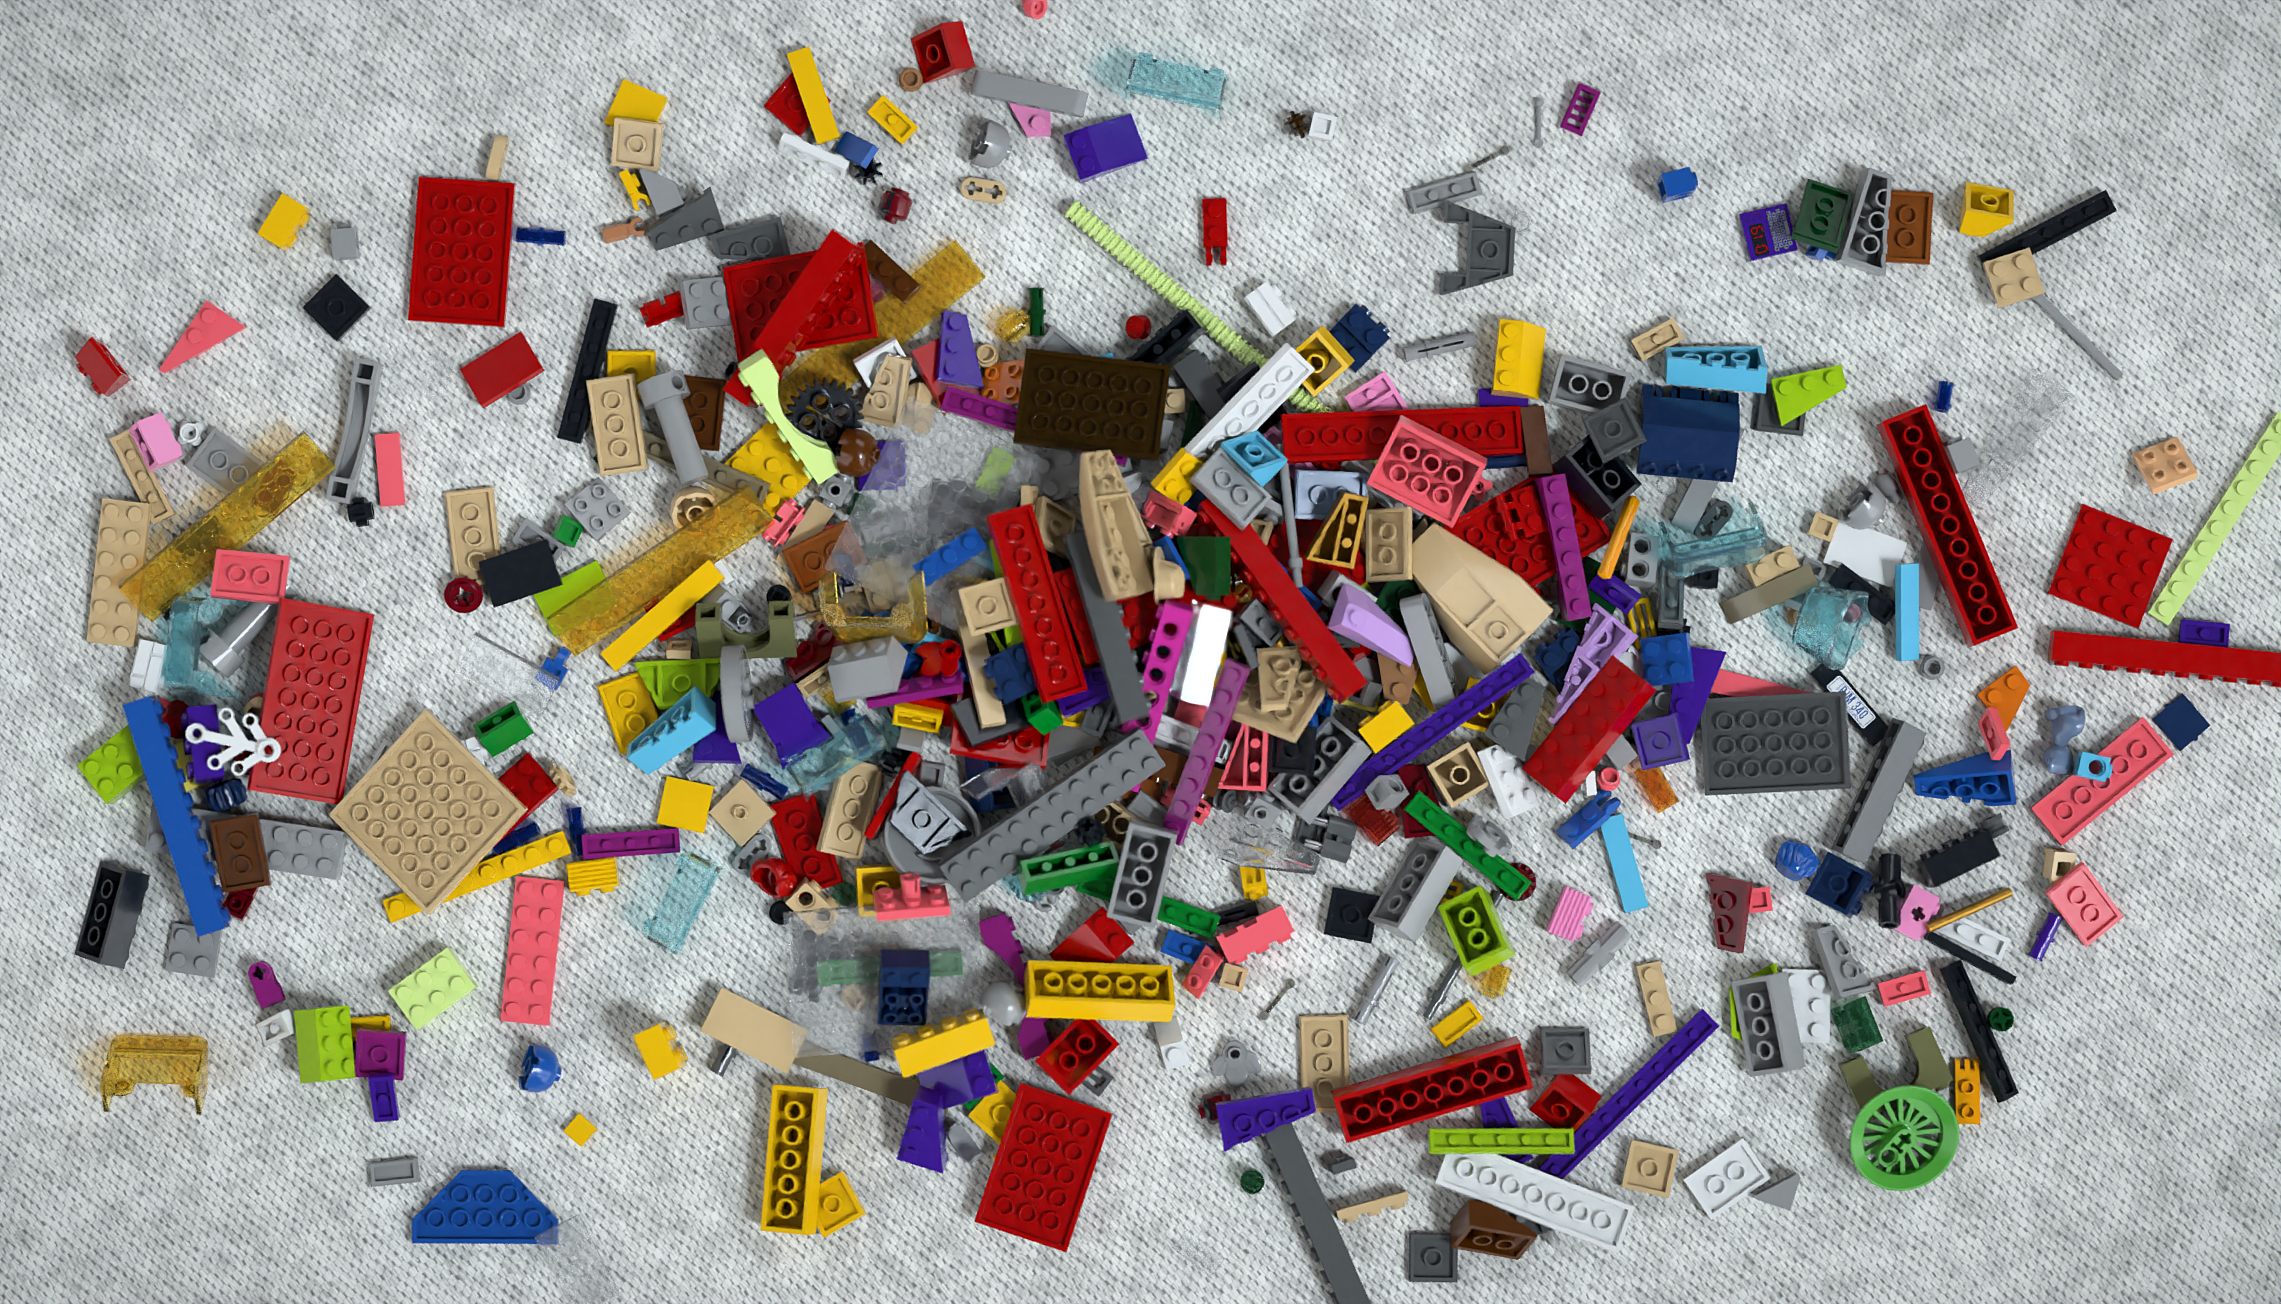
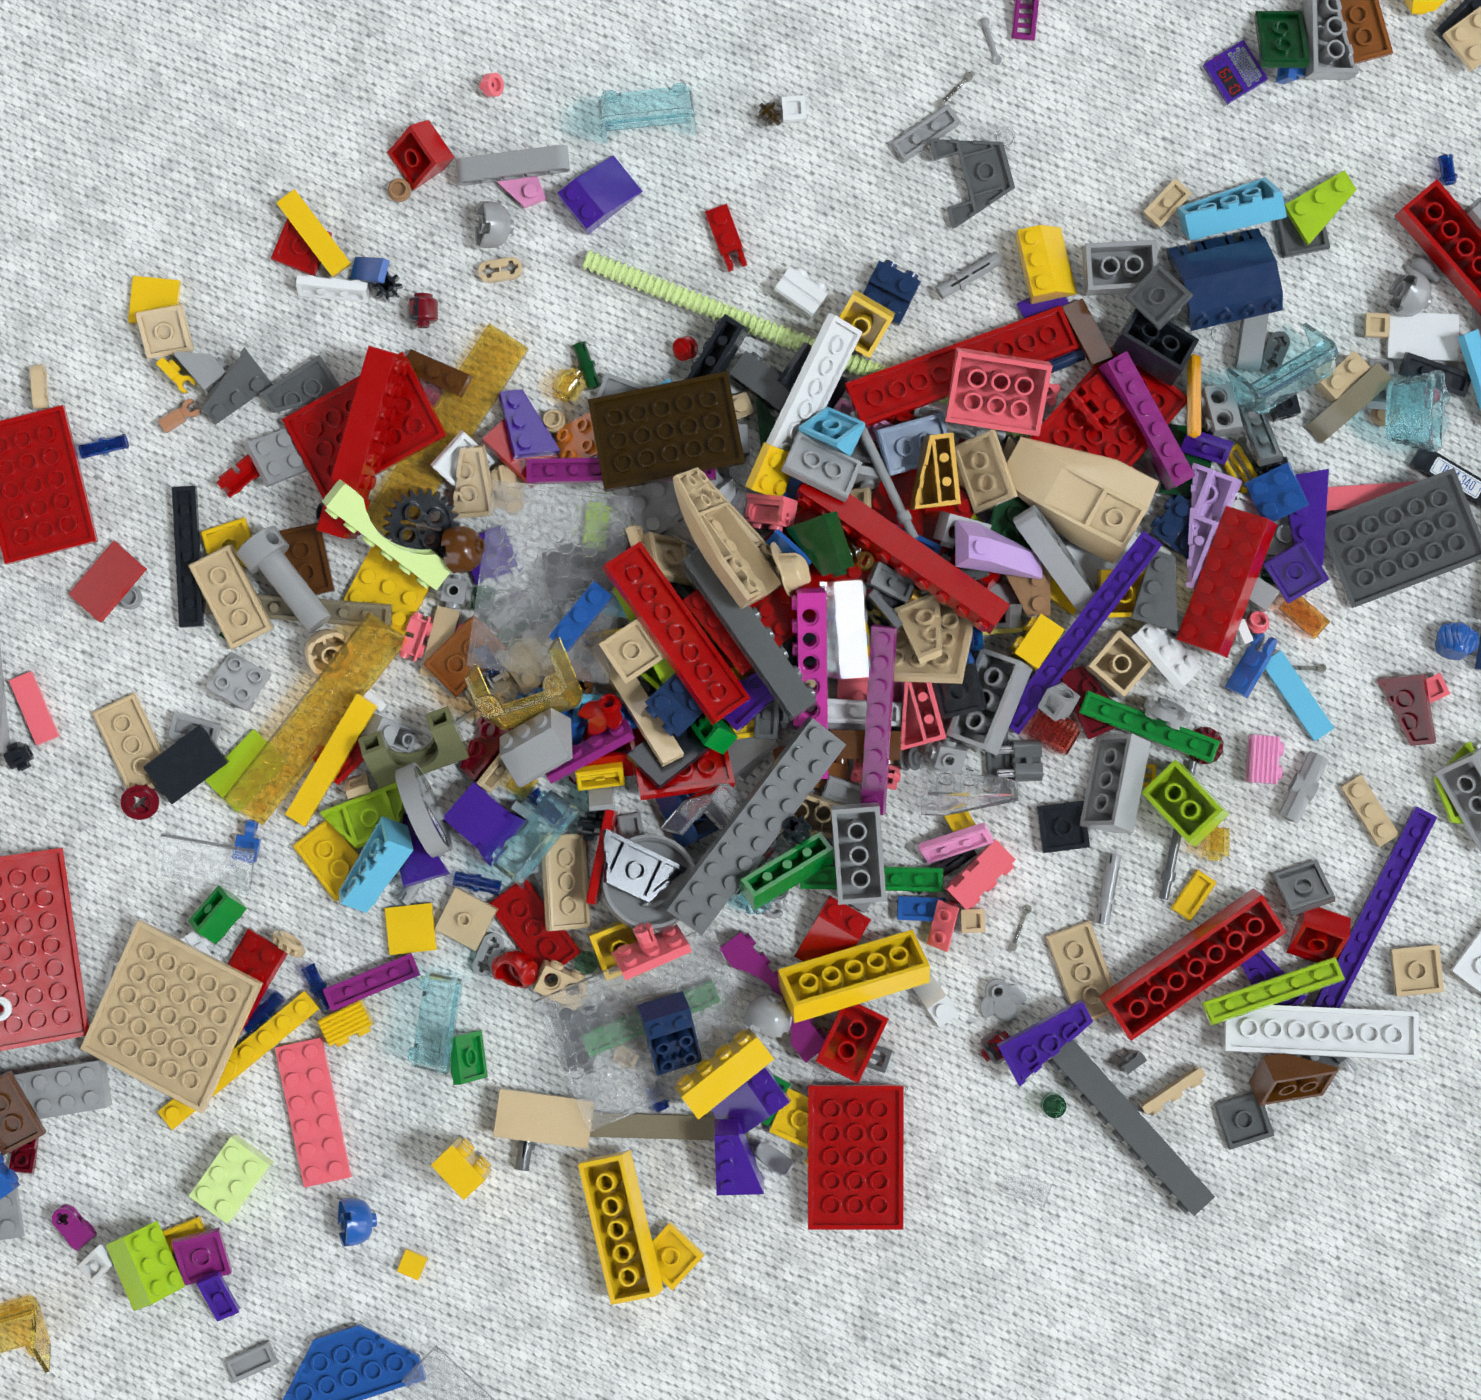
camera: 20 degrees left, 0 degrees up
(567, 531) = (217, 711): green tile -> none
(700, 947) = (468, 1058): none -> green plate
(776, 912) = (528, 999): black plate -> none
(780, 592) = (436, 703): black wheel -> none
(892, 120) = (394, 232): yellow plate -> none
(1241, 896) = (955, 843): none -> bright pink tile
(1376, 395) = (925, 338): bright pink wing -> none
(1677, 184) = (1138, 53): blue brick -> none

